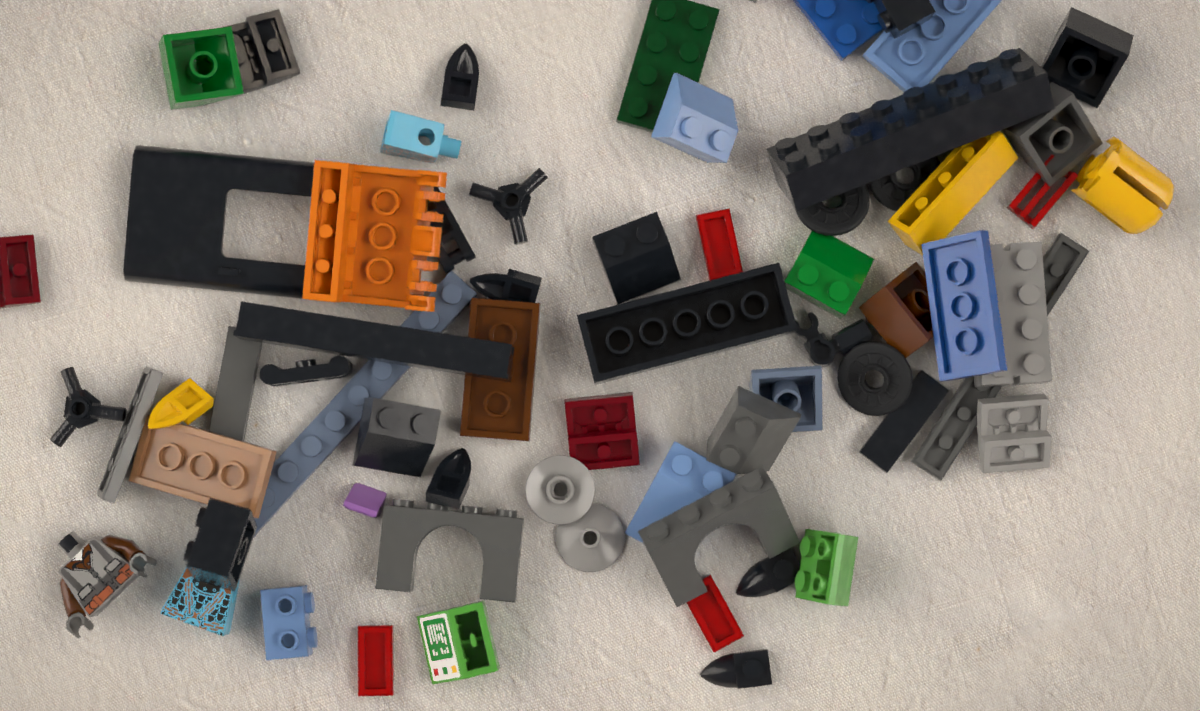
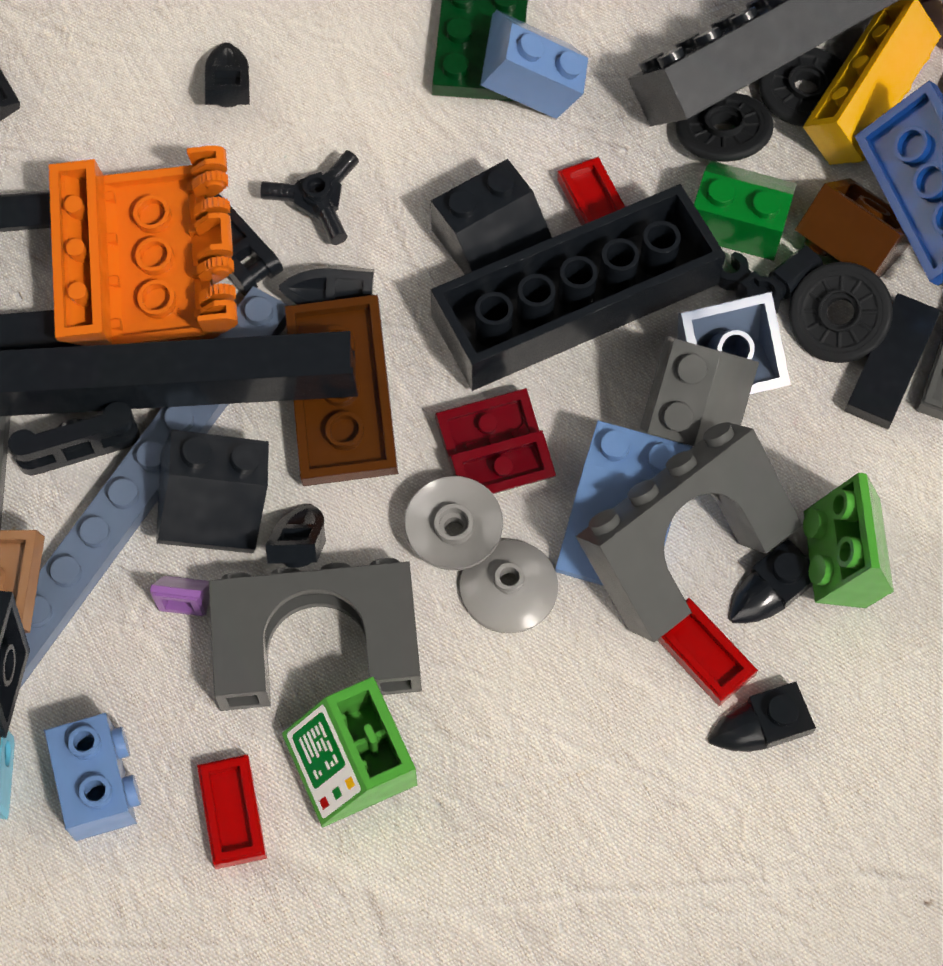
camera: 15 degrees left, 20 degrees down
(402, 138) = (173, 125): medium azure torso -> none

